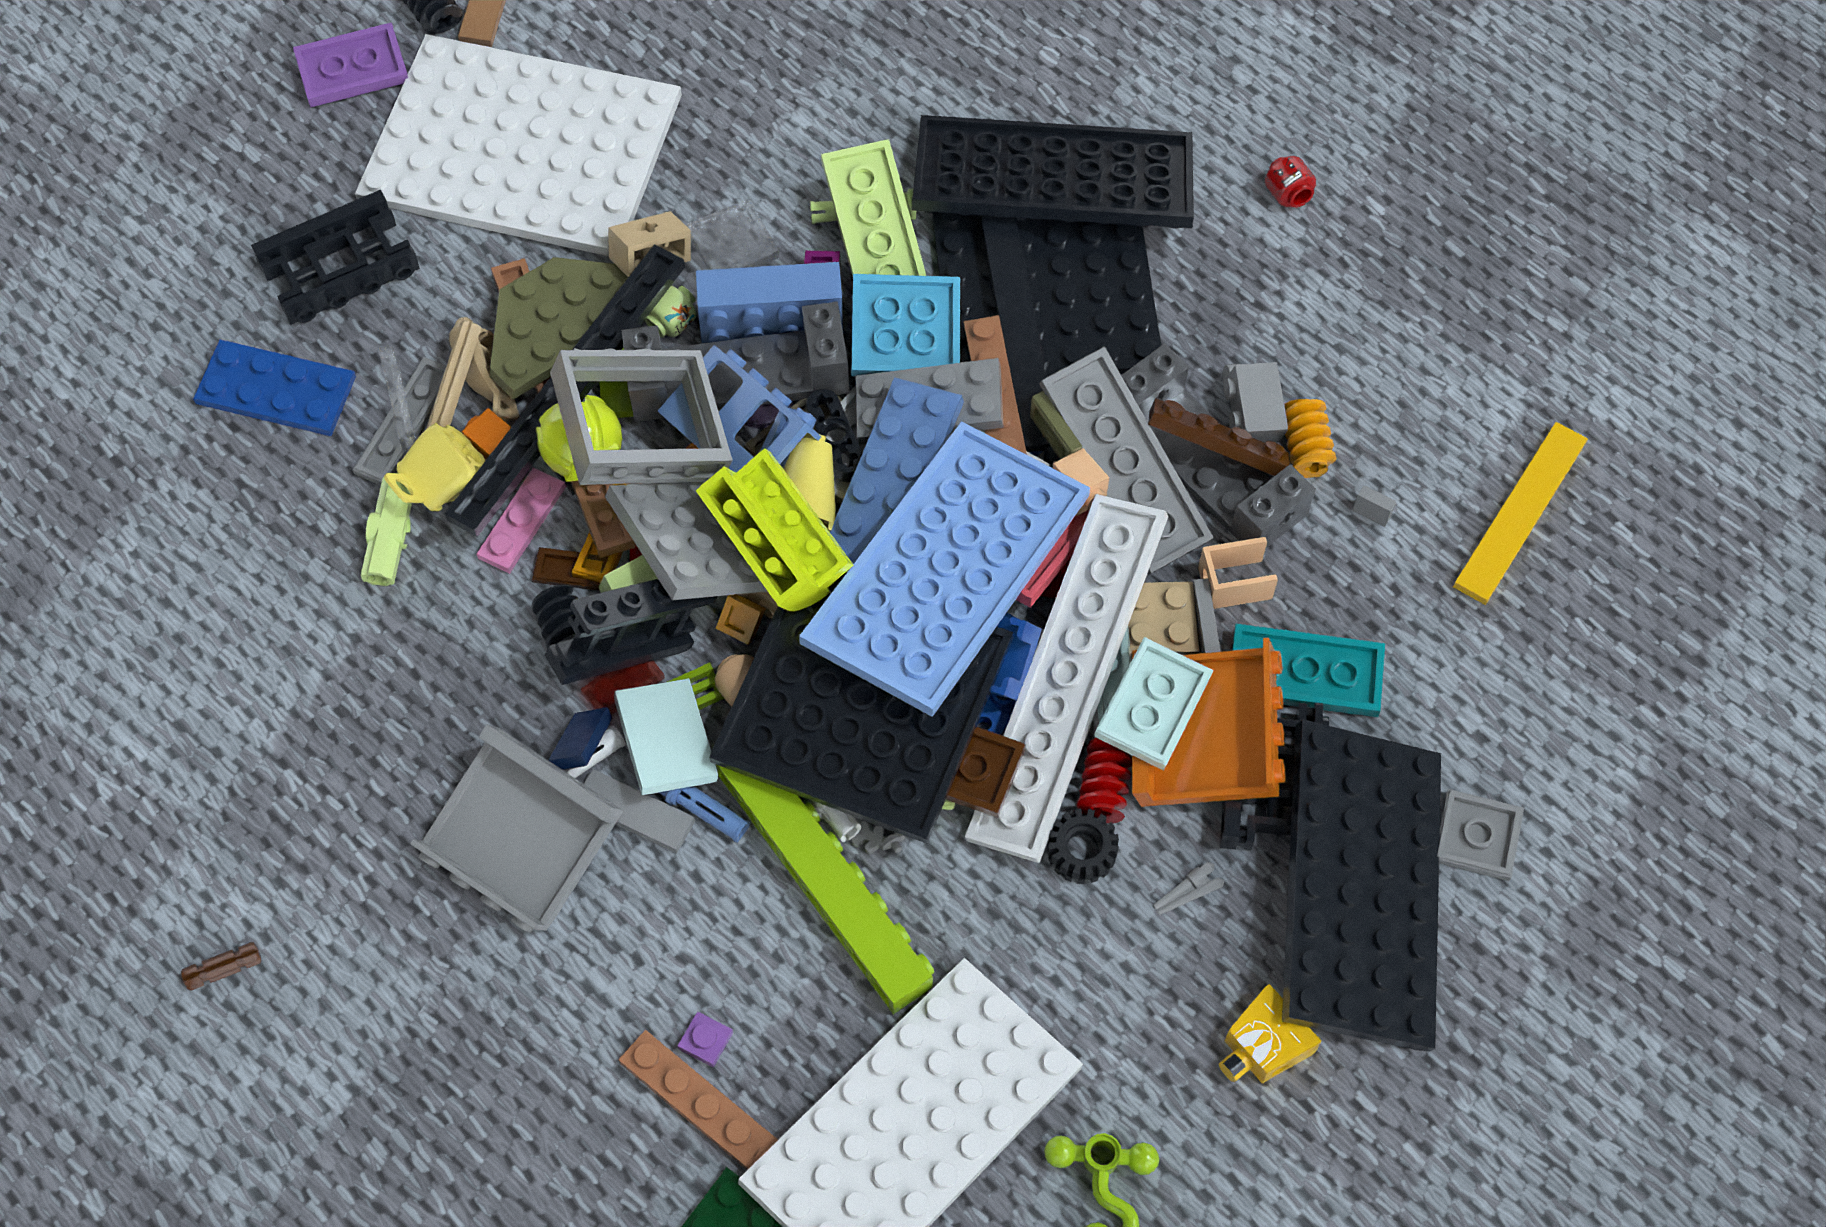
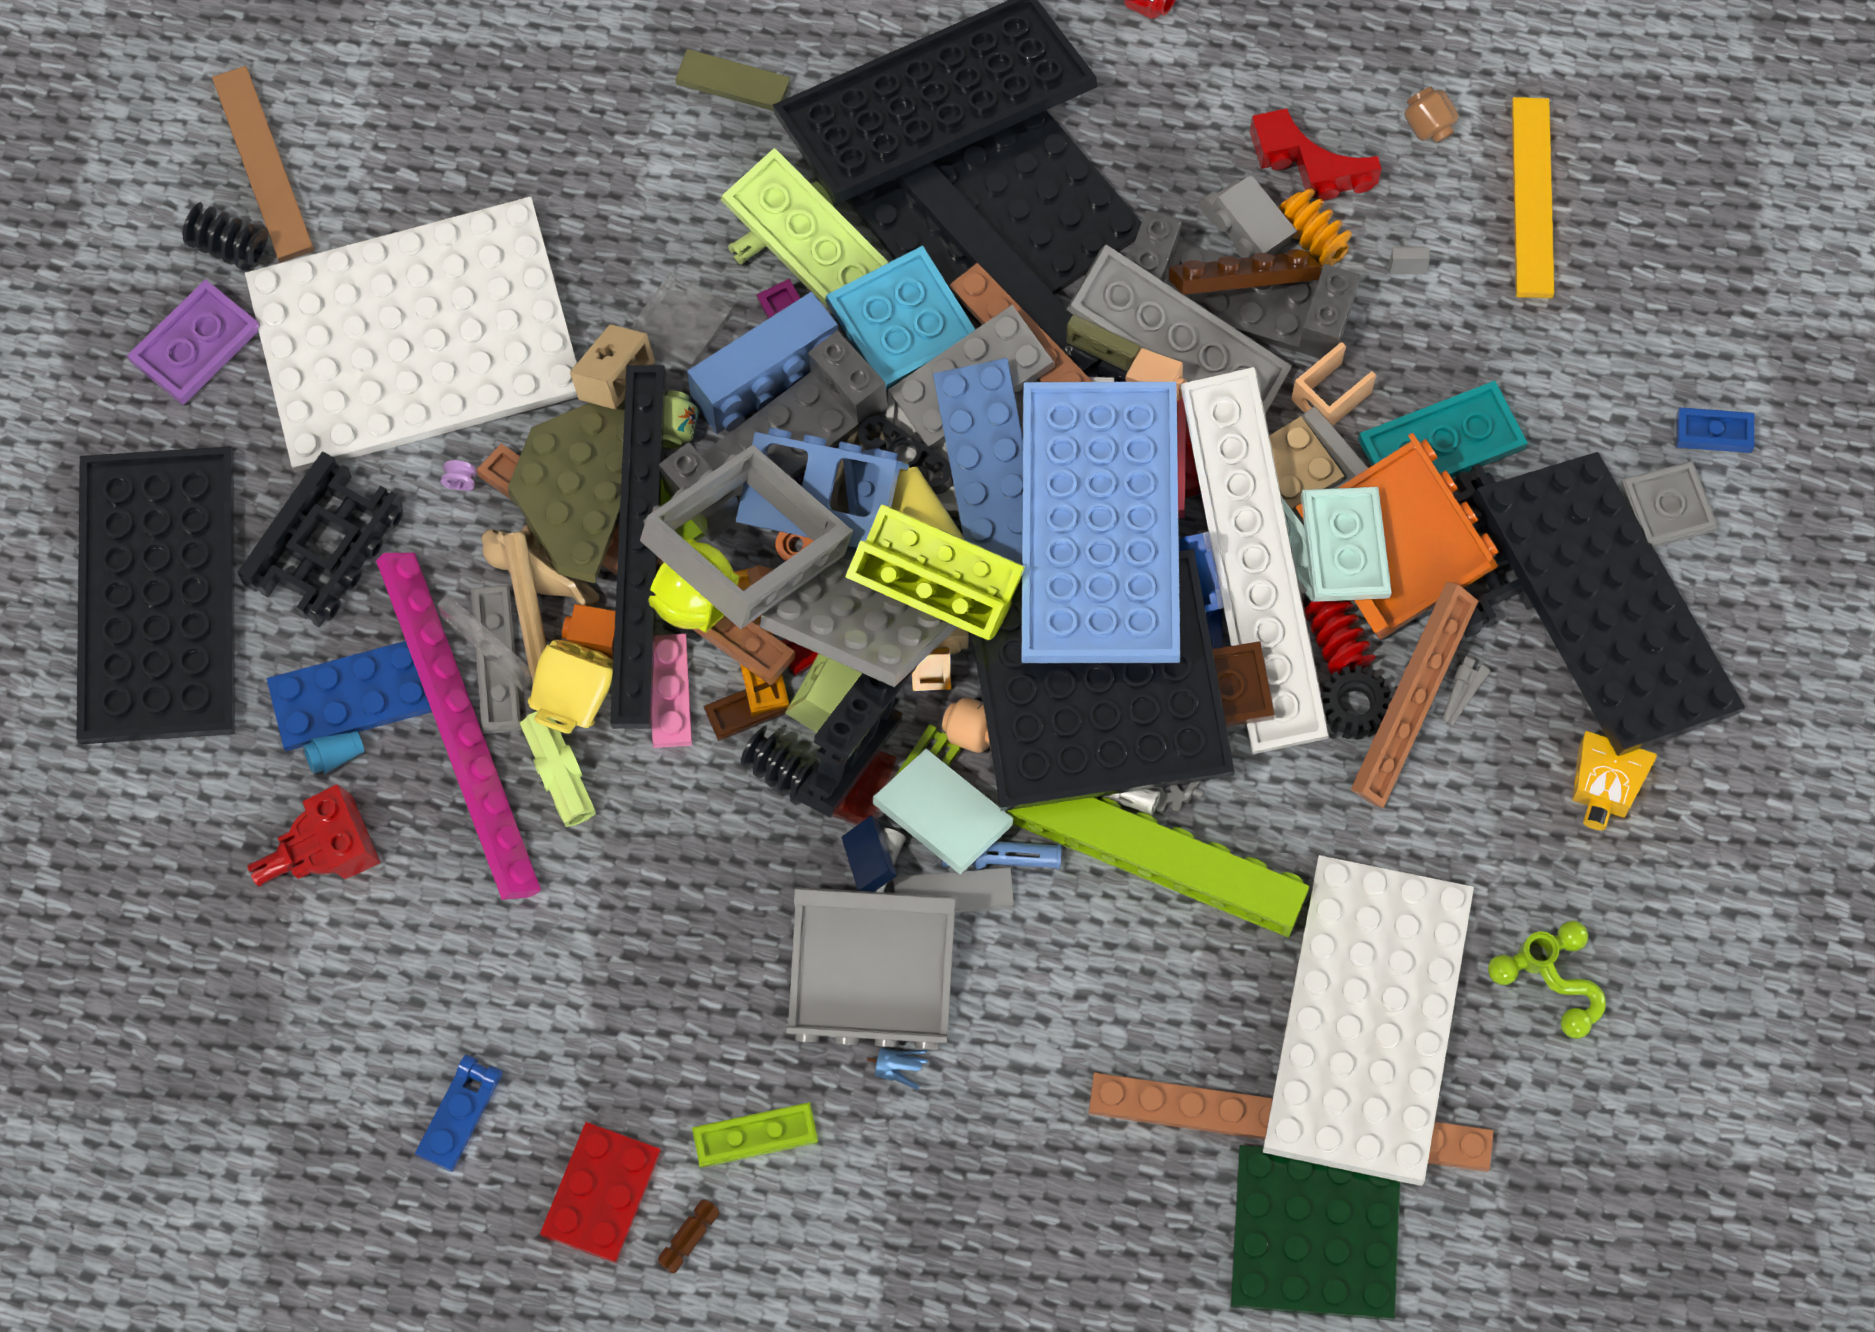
camera: 30 degrees left, 5 degrees up
(116, 758) = (458, 1114): none -> blue plate
(170, 484) = (321, 841): none -> red brick
(178, 888) = (600, 1192): none -> red plate
(184, 235) = (156, 595): none -> black plate
(226, 421) = (332, 751): none -> dark azure cone
(333, 915) = (754, 1135): none -> lime tile
(334, 459) = (458, 726): none -> dark pink plate
(475, 266) = (458, 475): none -> lavender bush
(483, 922) = (891, 1060): none -> flat silver piece
(705, 1039) = (1148, 1051): medium lavender plate -> none
(903, 81) = (732, 80): none -> olive tile
(1134, 866) = (1414, 694): none -> nougat plate
(1347, 396) = (1281, 142): none -> red arch
(1472, 398) = (1431, 114): none -> medium nougat head
(1561, 792) = (1715, 430): none -> blue plate

